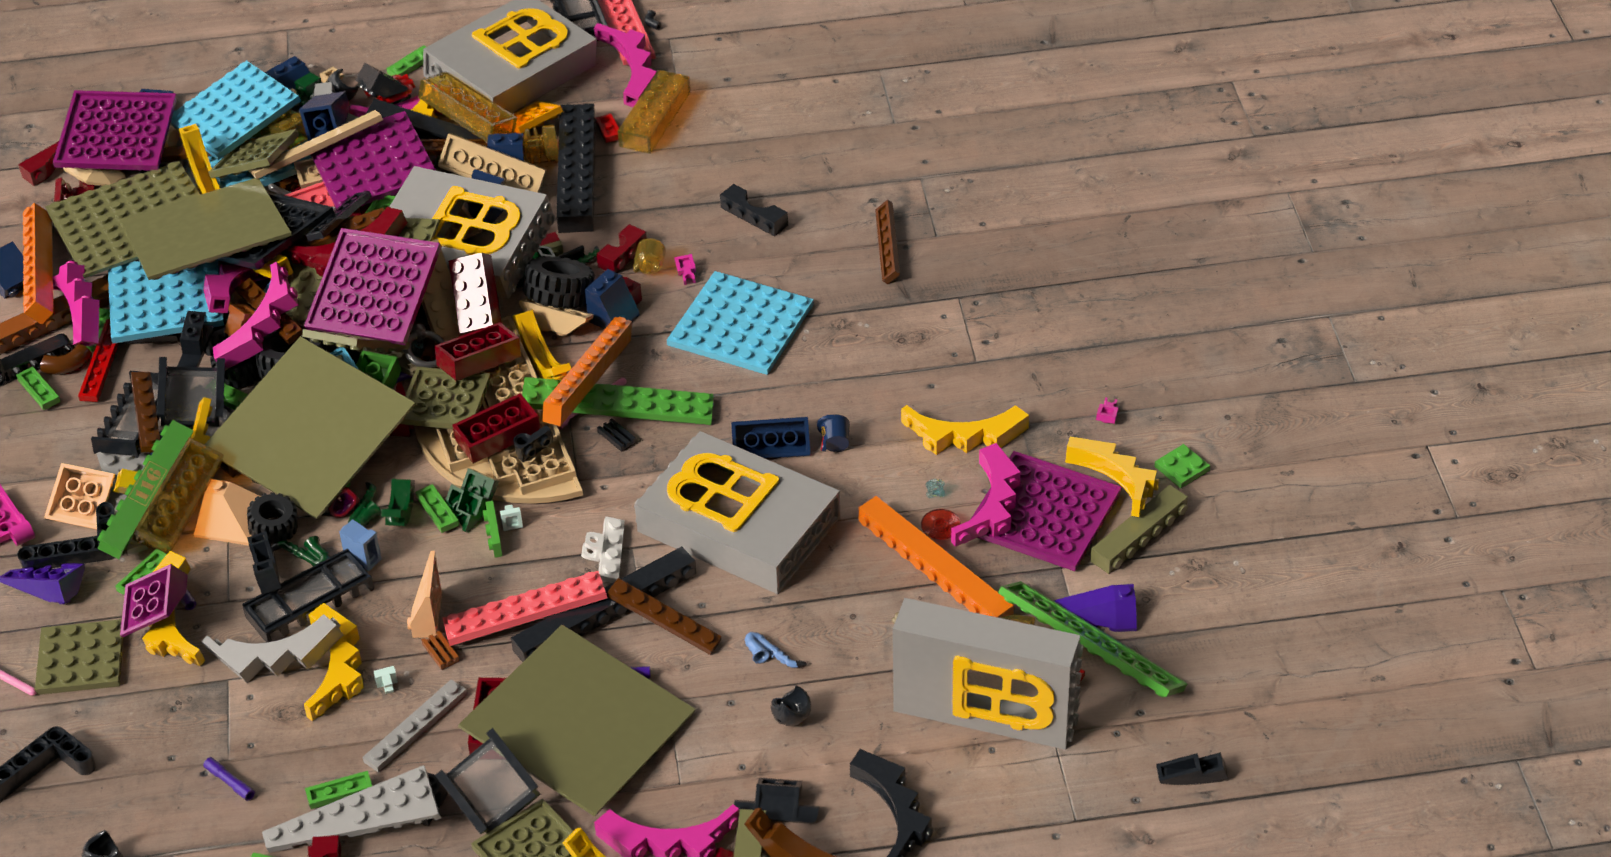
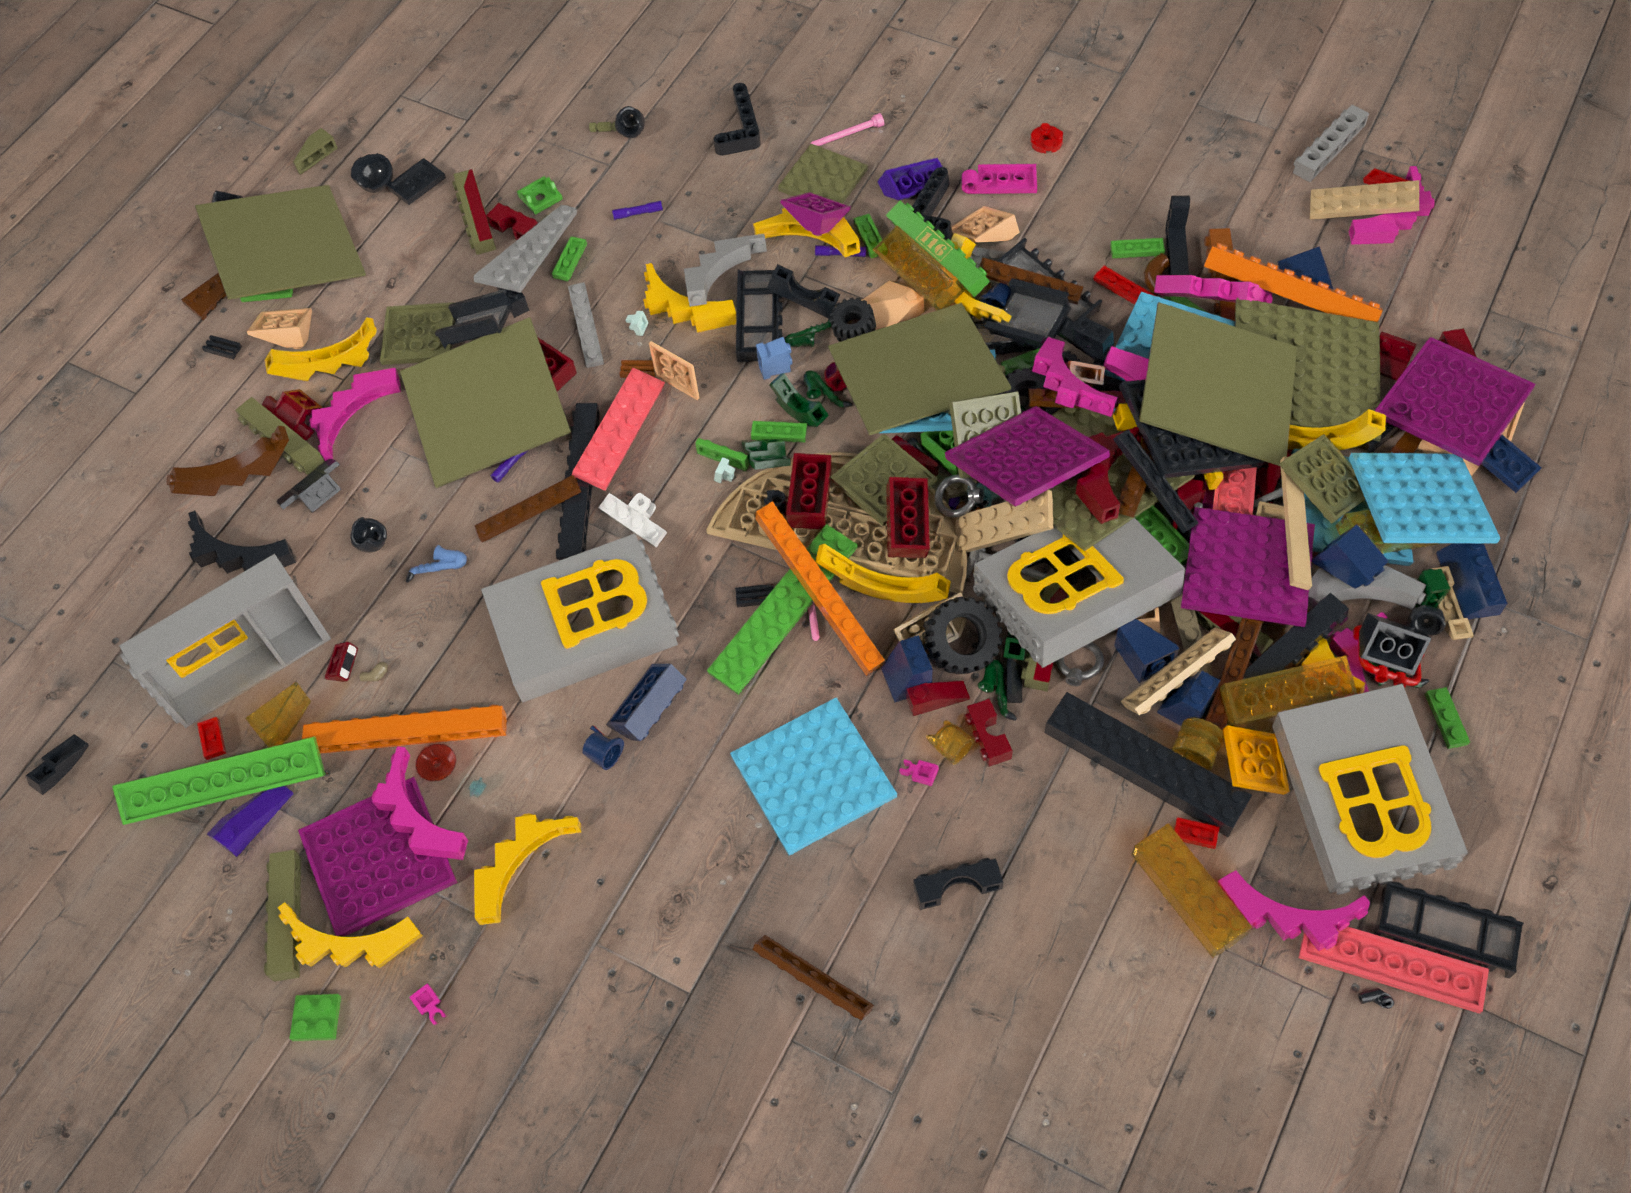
camera: 130 degrees right, 15 degrees up
(474, 292) = (974, 541): brick -> none

